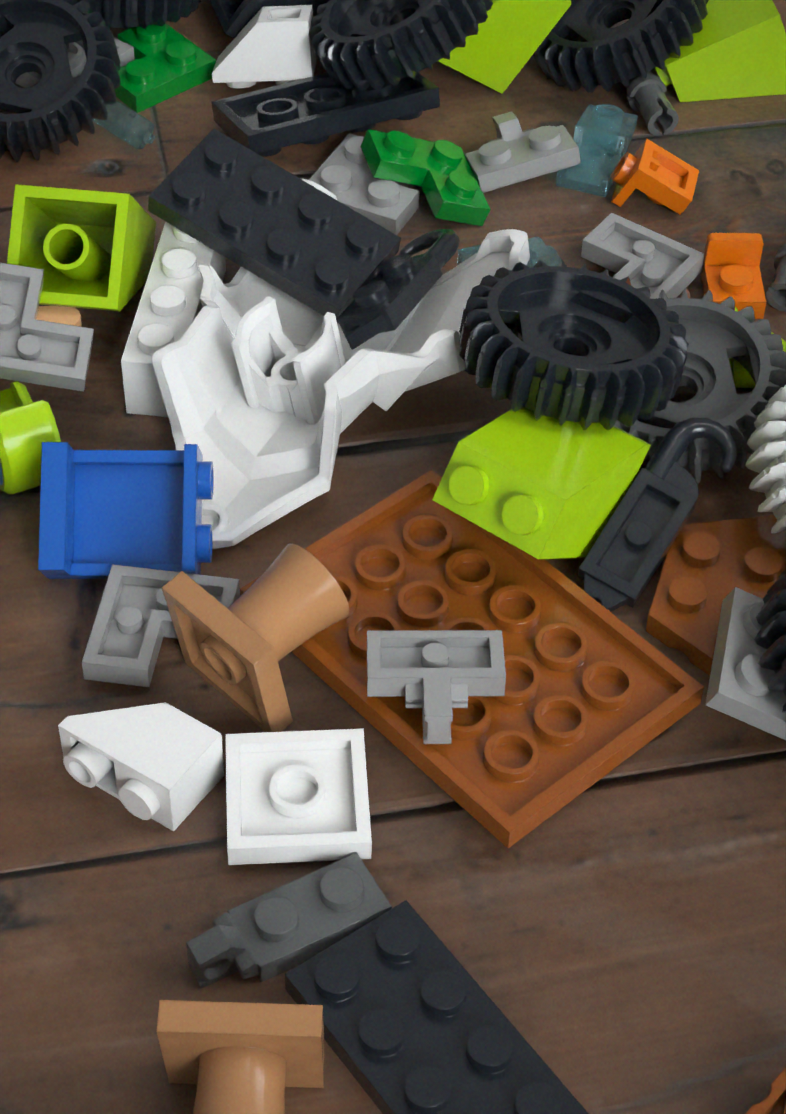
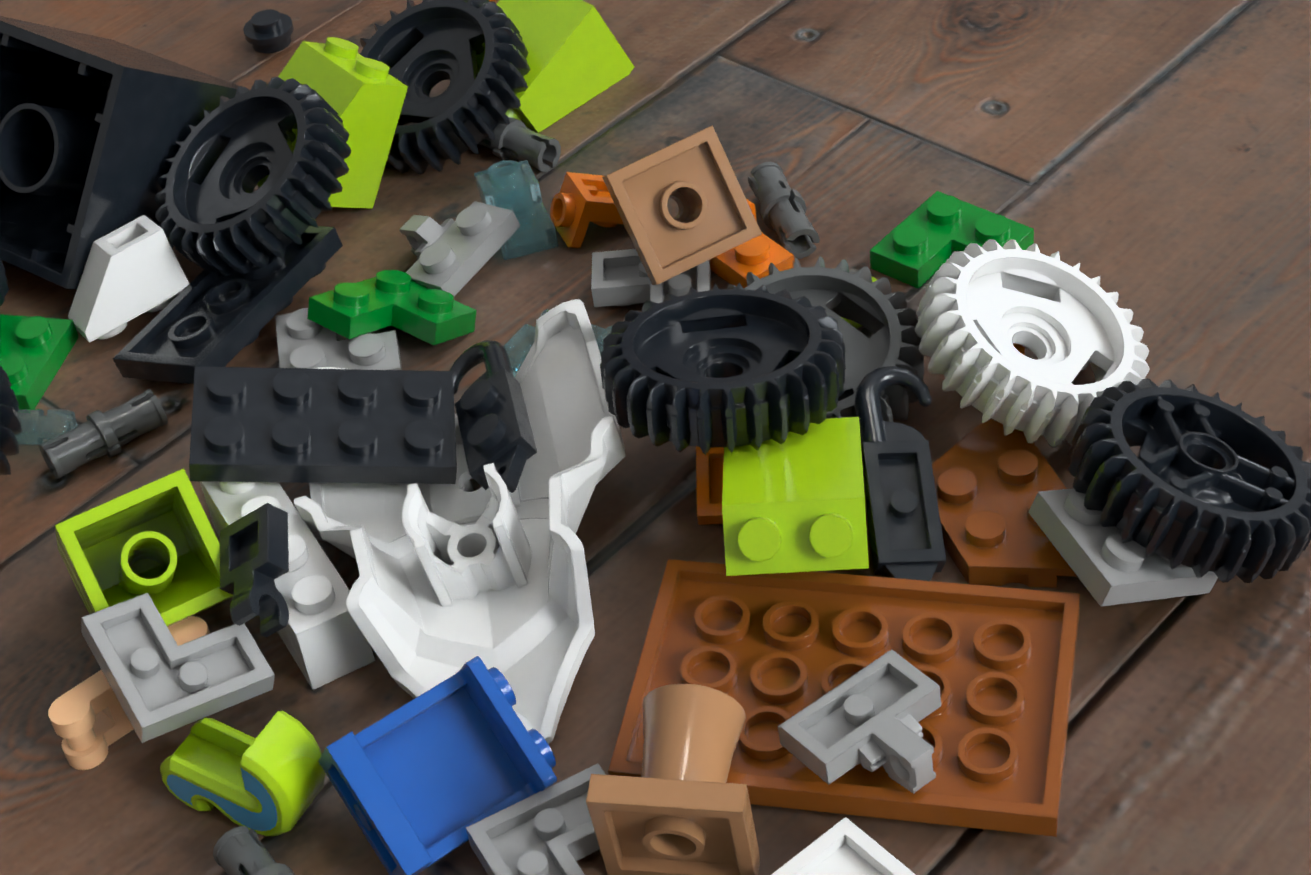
camera: 30 degrees left, 5 degrees down
(133, 288) = (250, 559): none -> black plate
(148, 152) = (103, 434): none -> dark grey pin
(659, 191) = (709, 200): none -> medium nougat plant

